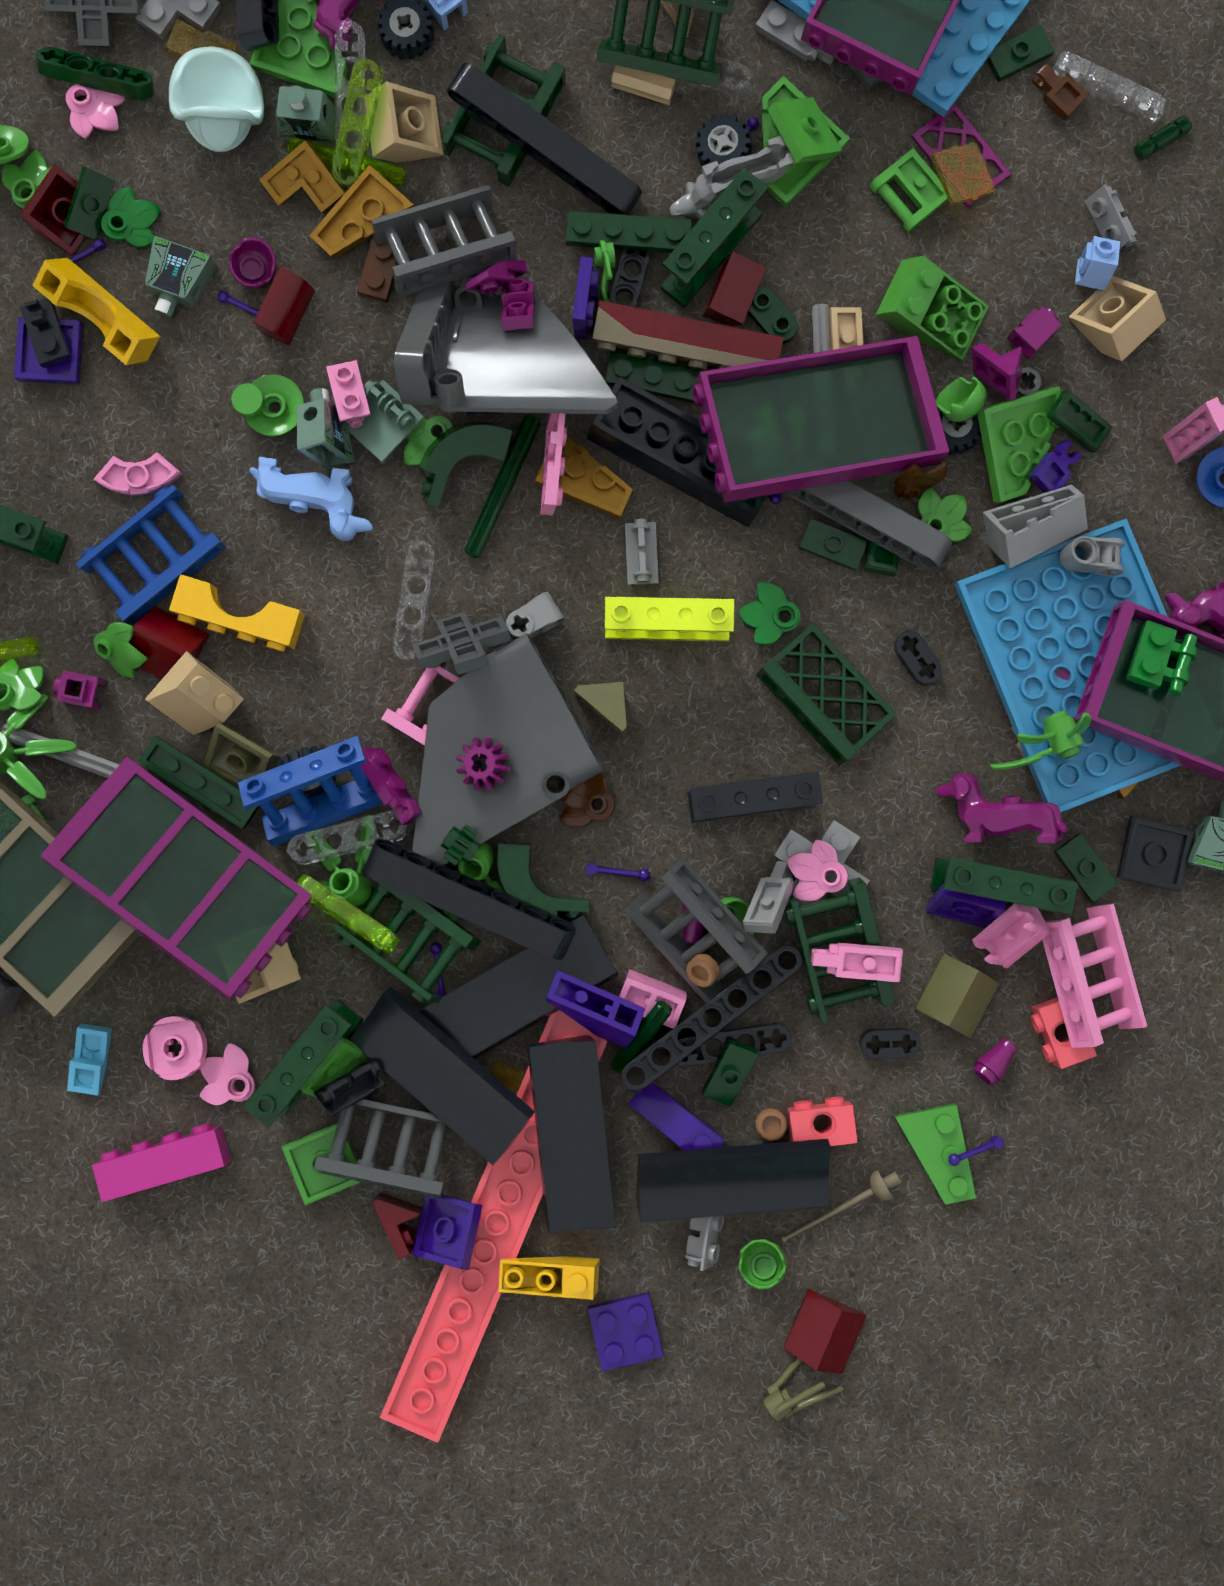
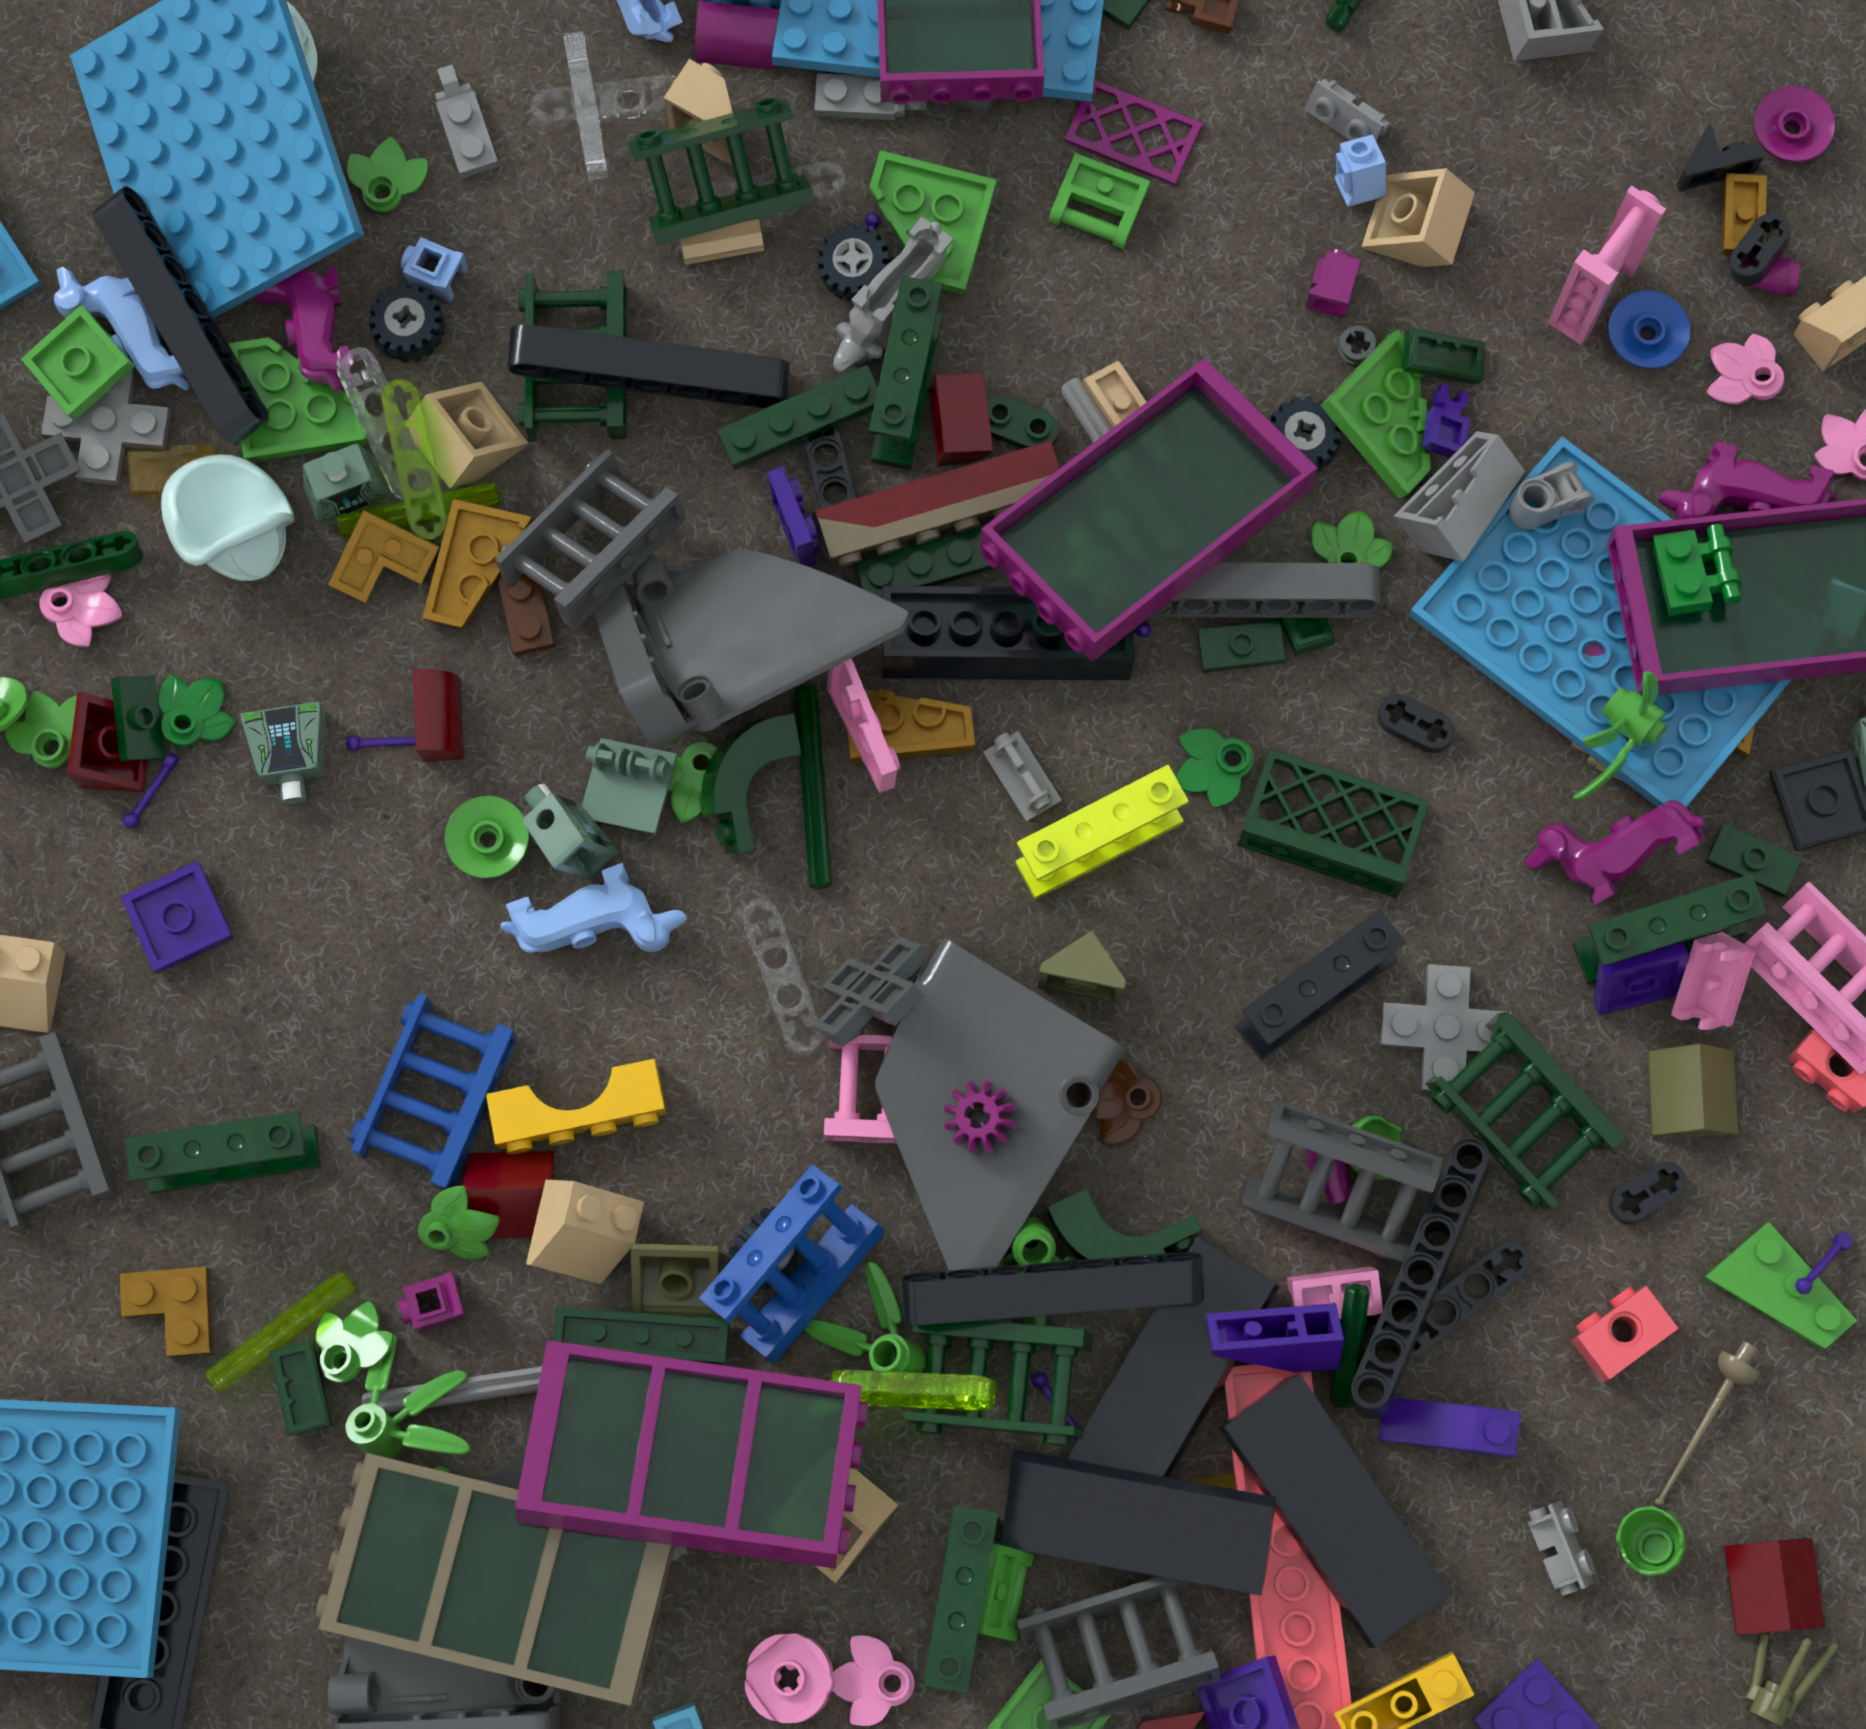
camera: 30 degrees left, 10 degrees down
(45, 332) = (166, 896): black plate -> none
(73, 289) = (179, 828): yellow arch -> none
(139, 477) = (364, 1011): bright pink tile -> none
(248, 400) = (455, 845): bright green tile -> none
(252, 263) = (373, 684): magenta hair -> none
(348, 393) = (572, 773): bright pink hinge -> none
(349, 842) = (855, 1295): clear beam -> none
(350, 1088) = (1035, 1600): black hinge -> none
(389, 785) = (882, 1211): magenta hinge -> none
(460, 844) = (1006, 1226): dark green gear -> none
(497, 275) = (672, 553): magenta slope -> none
(518, 305) = (720, 566): magenta slope -> none
(537, 617) = (939, 916): light grey piece -> none
(592, 869) = (1174, 1180): dark purple hinge -> none
(605, 258) = (796, 465): bright green plate -> none
(702, 970) = (1377, 1223): medium nougat tile -> none
(730, 1072) = (1479, 1331): dark green plate -> none
(733, 1180) = (1556, 1454): black arch -> none
(769, 900) = (1408, 1096): light grey hinge -> none
(771, 1124) = (1563, 1369): medium nougat tile -> none
(804, 129) = (942, 198): bright green plate -> none
(813, 869) = (1438, 1033): bright pink plate -> none
(860, 961) = (1556, 1106): bright pink hinge -> none
(914, 479) = (1293, 520): reddish brown plate -> none
(932, 306) = (1200, 317): bright green slope -> none
(961, 399) = (1296, 402): bright green hair -> none
(963, 173) = (1149, 151): clear yellow piece -> none
(994, 1063) = (1783, 1146): magenta cone -> none
(999, 372) = (1320, 349): magenta slope -> none

